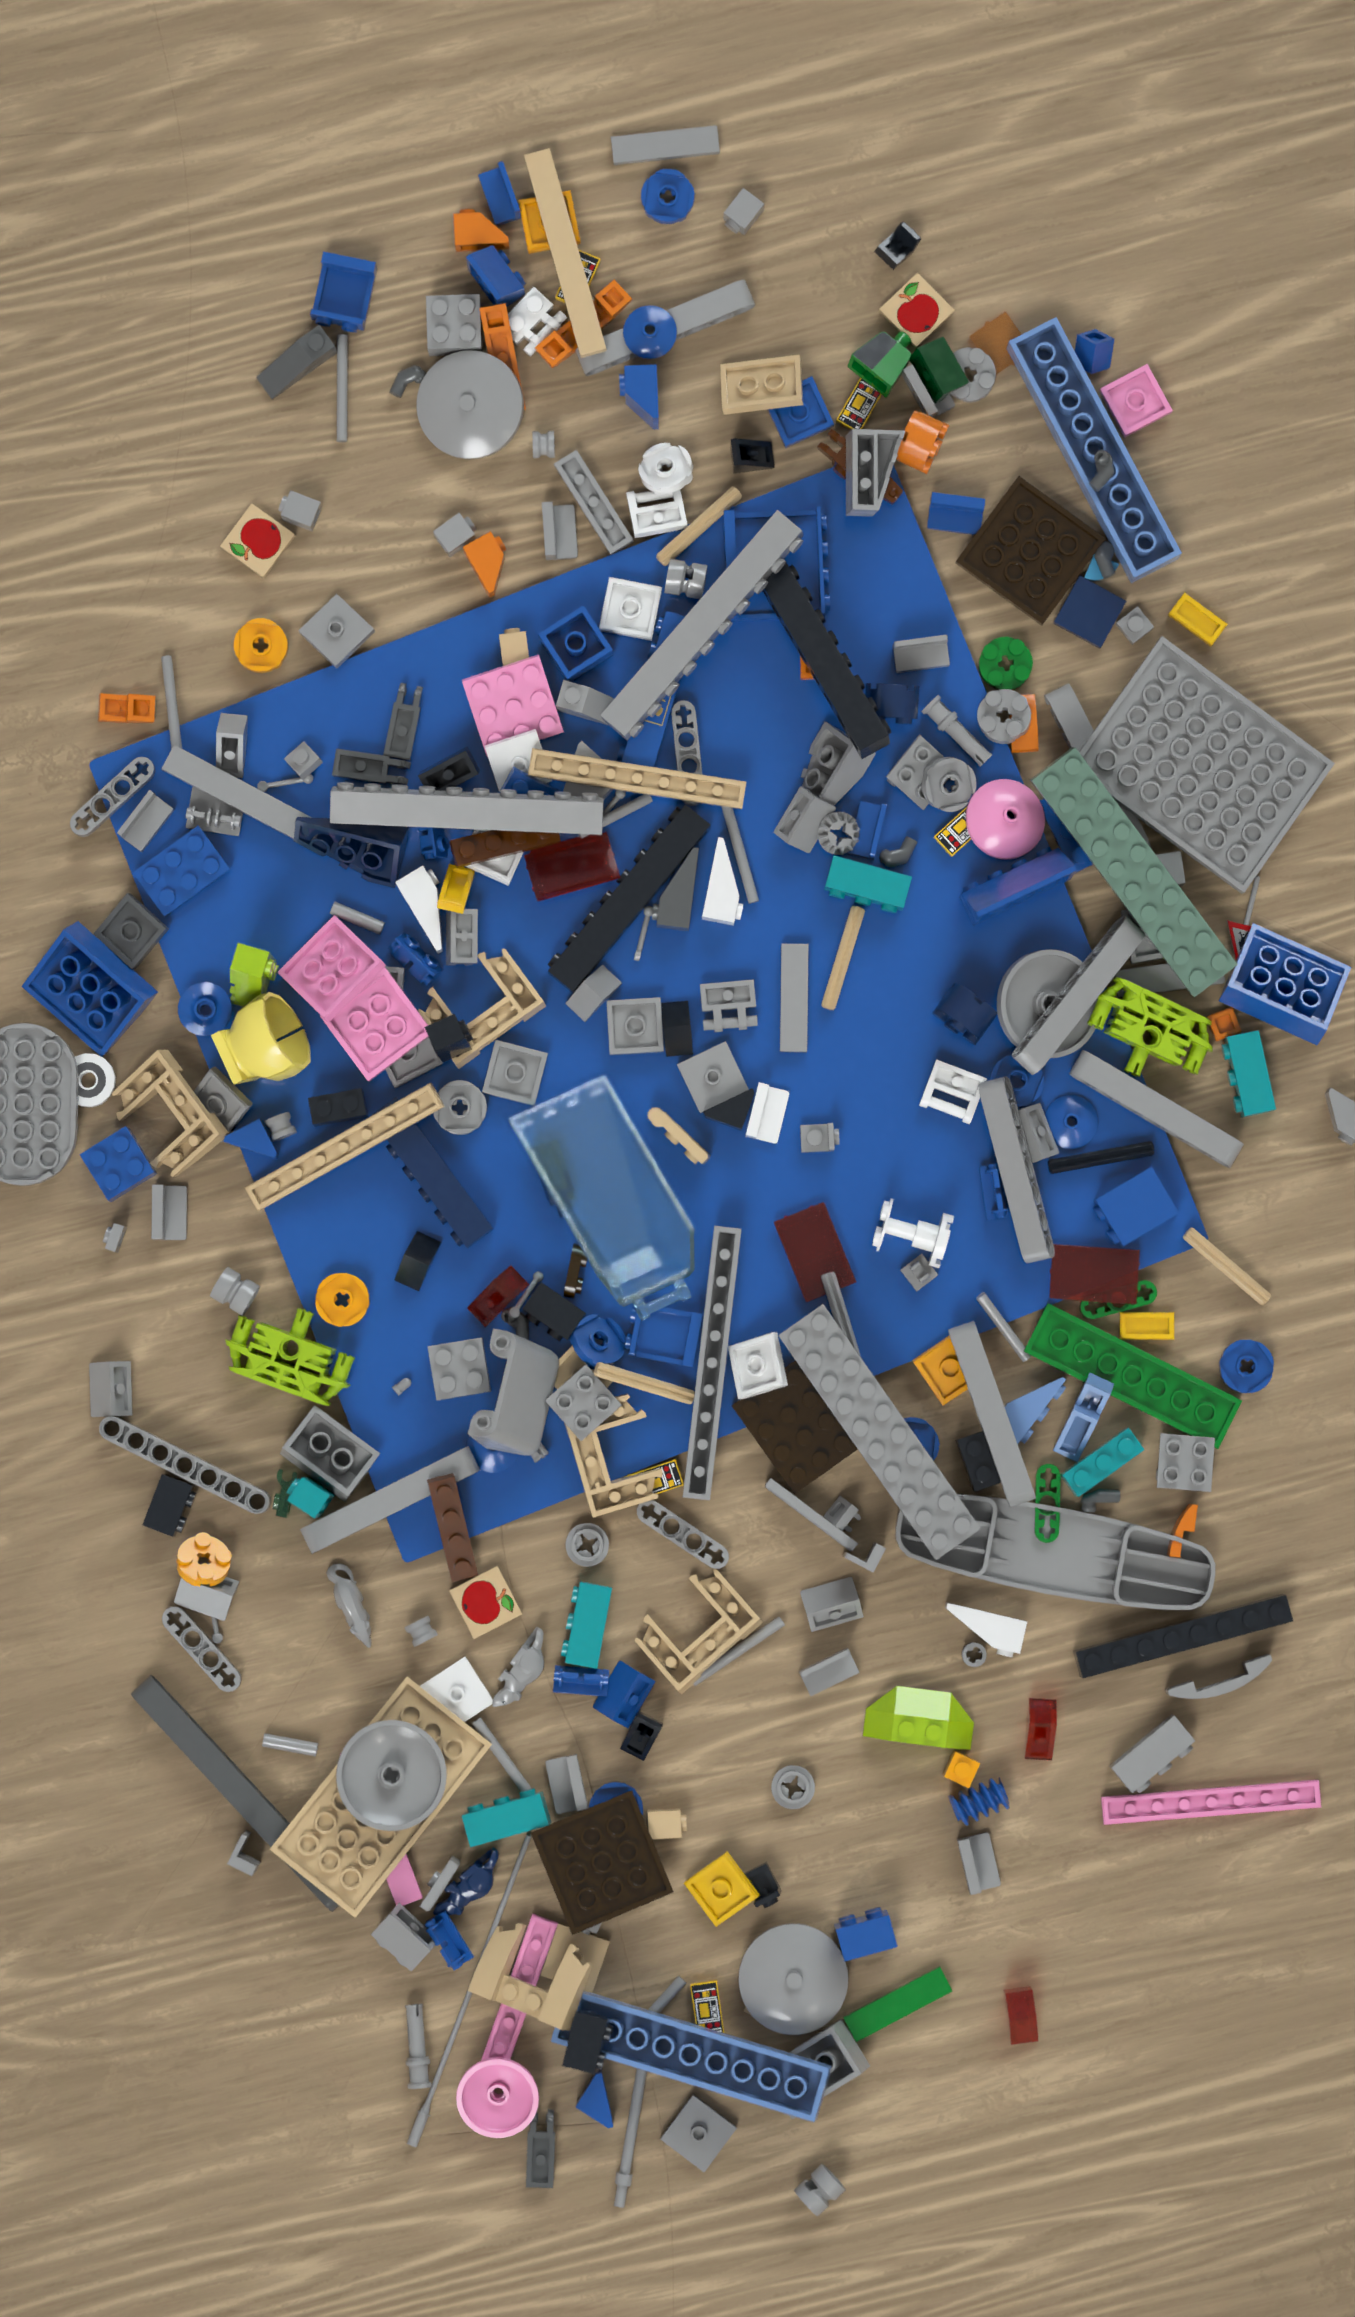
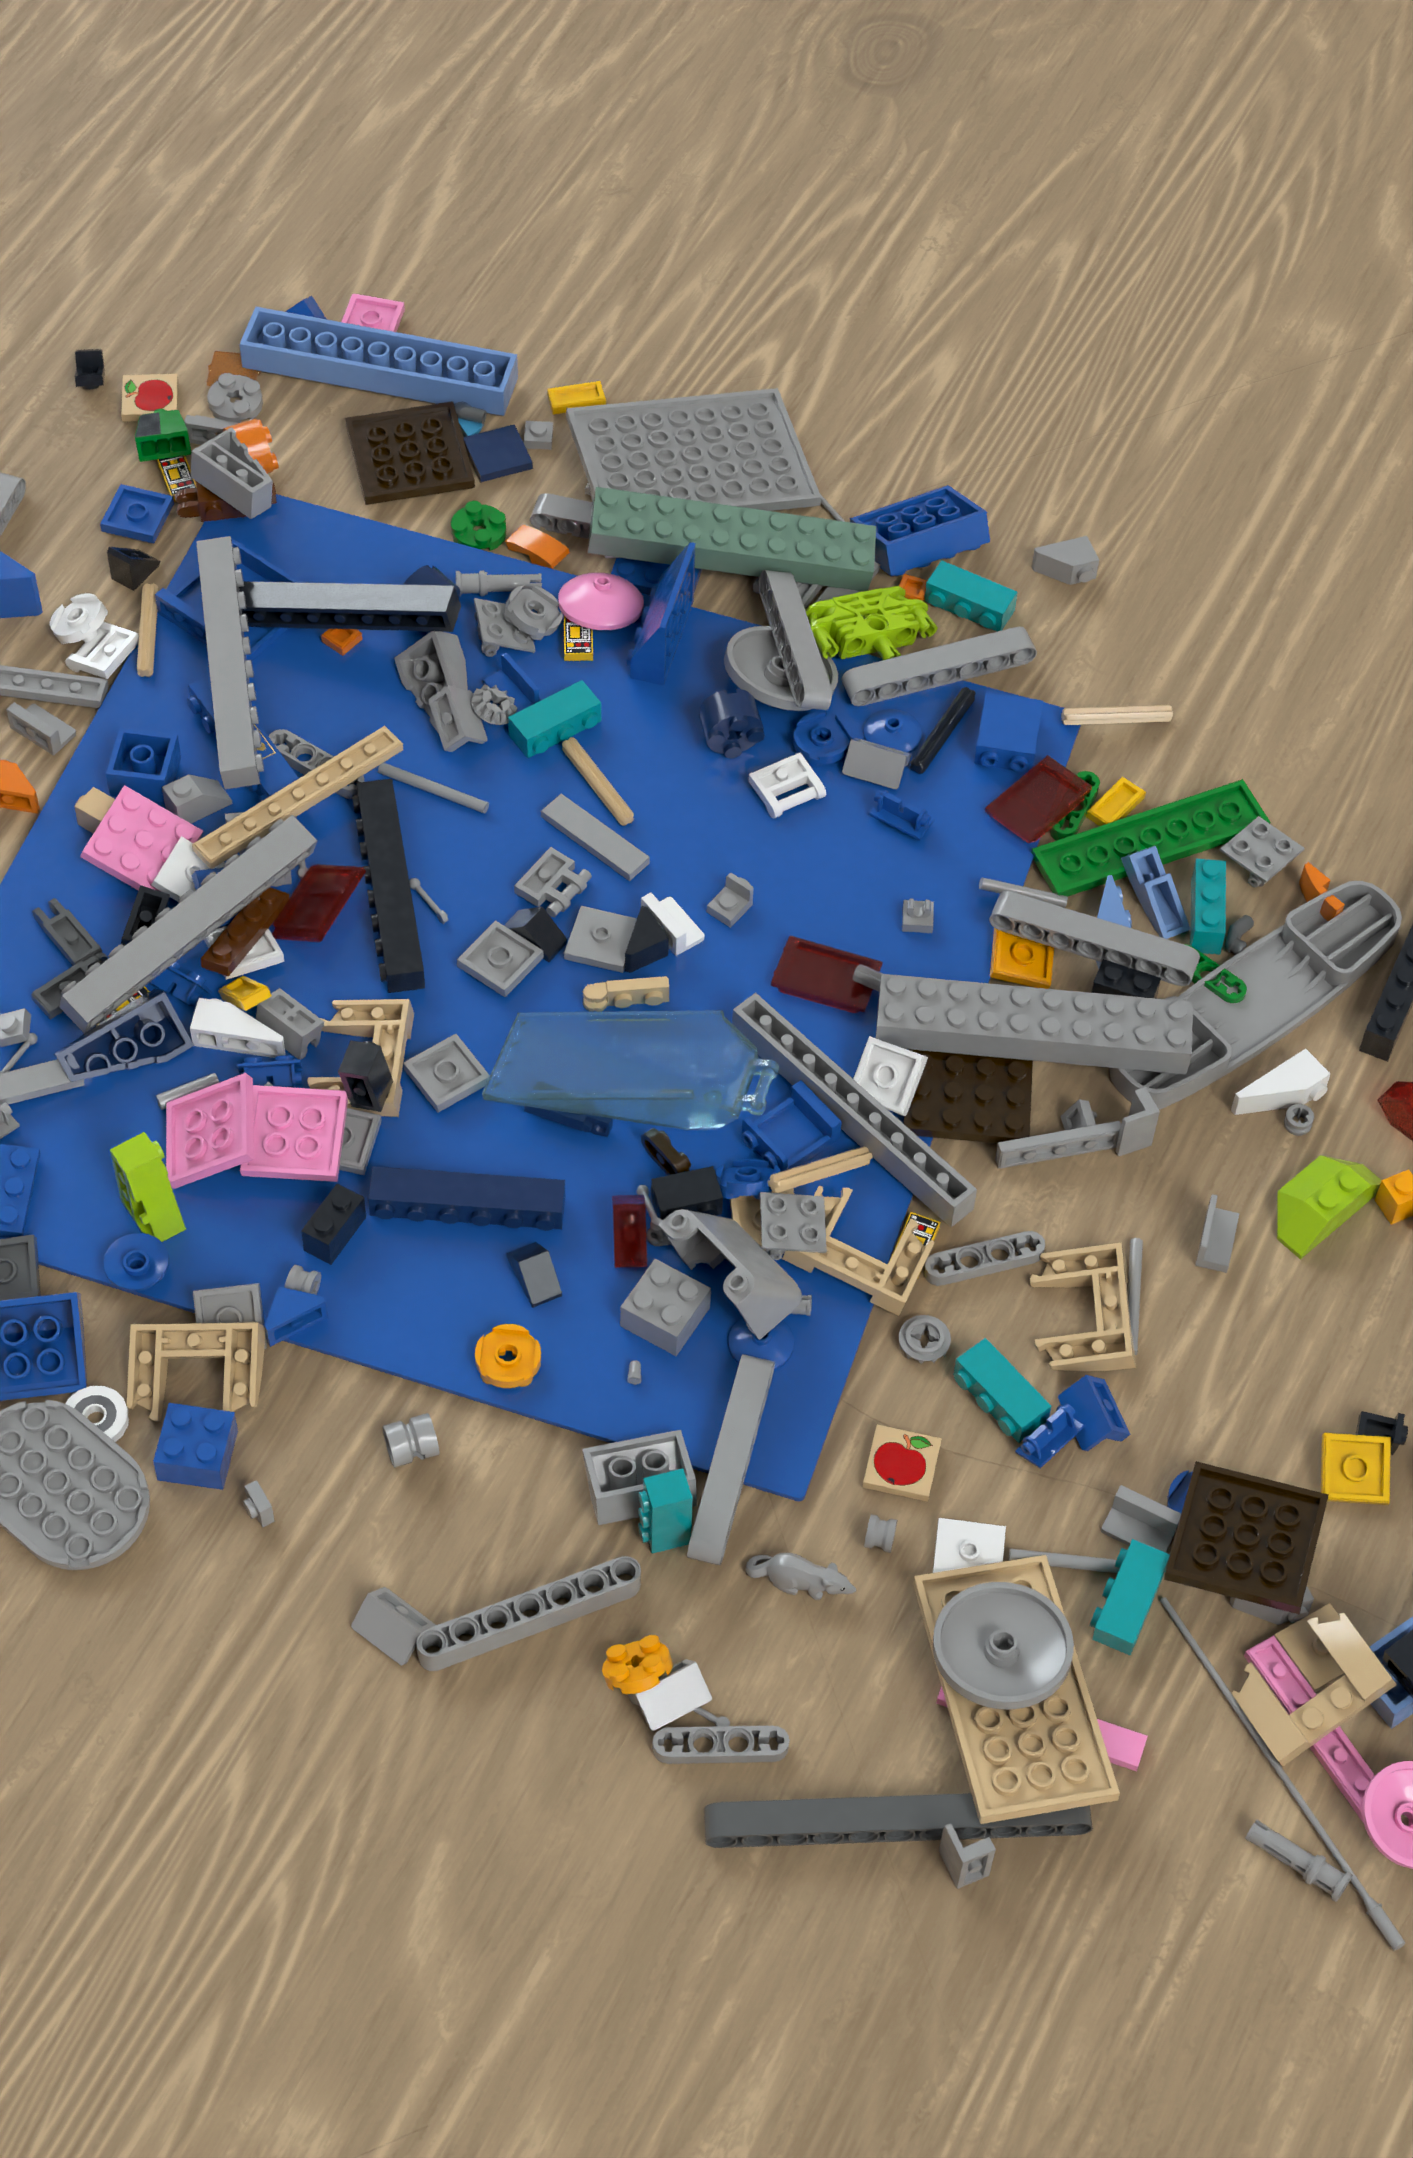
camera: 50 degrees left, 30 degrees down
(169, 1212) = (282, 1445): light grey panel -> none
(169, 1505) = (554, 1658): black brick -> none
(251, 1045) = (215, 1225): light yellow plate -> none
(280, 1500) = (643, 1549): clear green plate -> none
(282, 1374) = (513, 1460): lime piece -> none
(290, 1744) = (888, 1739): light grey piece -> none
(344, 1147) = (373, 1242): tan tile -> none
(404, 1937) = (1175, 1778): light grey brick -> none
(439, 1882) = (1147, 1697): light grey plate -> none
(446, 1934) = (1211, 1743): blue hinge -> none
(452, 1527) = (807, 1424): reddish brown plate -> none
(471, 1118) = (433, 1152): light grey plate -> none
(474, 1884) = (1172, 1677): dark blue animal -> none
(526, 1668) = (996, 1473): light grey animal -> none
(593, 993) = (440, 972): light grey slope -> none
(624, 810) = (316, 830): light grey bar -> none
(630, 608) = (159, 712): white plate -> none
(641, 1735) = (1147, 1422): black slope -> none
(666, 1823) = (1254, 1460): tan brick -> none
(676, 580) = (174, 662): light grey wheel -> none
(677, 899) = (431, 855): dark grey slope -> none
(722, 893) = (452, 815): white slope -> none
(761, 384) = (89, 514): tan plate -> none
(798, 1799) = (1305, 1331): light grey gear -> none
(831, 1604) = (1157, 1189): light grey panel -> none
(898, 856) = (554, 684): dark grey arm -> none
(921, 653) = (408, 557): light grey panel -> none
(923, 1235) = (899, 873): white piece -> none
(938, 369) = (208, 404): dark green panel -> none
(955, 513) = (326, 475): blue panel -> none
(995, 703) = (512, 536): light grey plate -> none
(1016, 1169) = (900, 780): light grey beam -> none
(1104, 468) = (400, 350): dark grey arm -> none
(1261, 1368) = (1214, 774): blue plate -> none

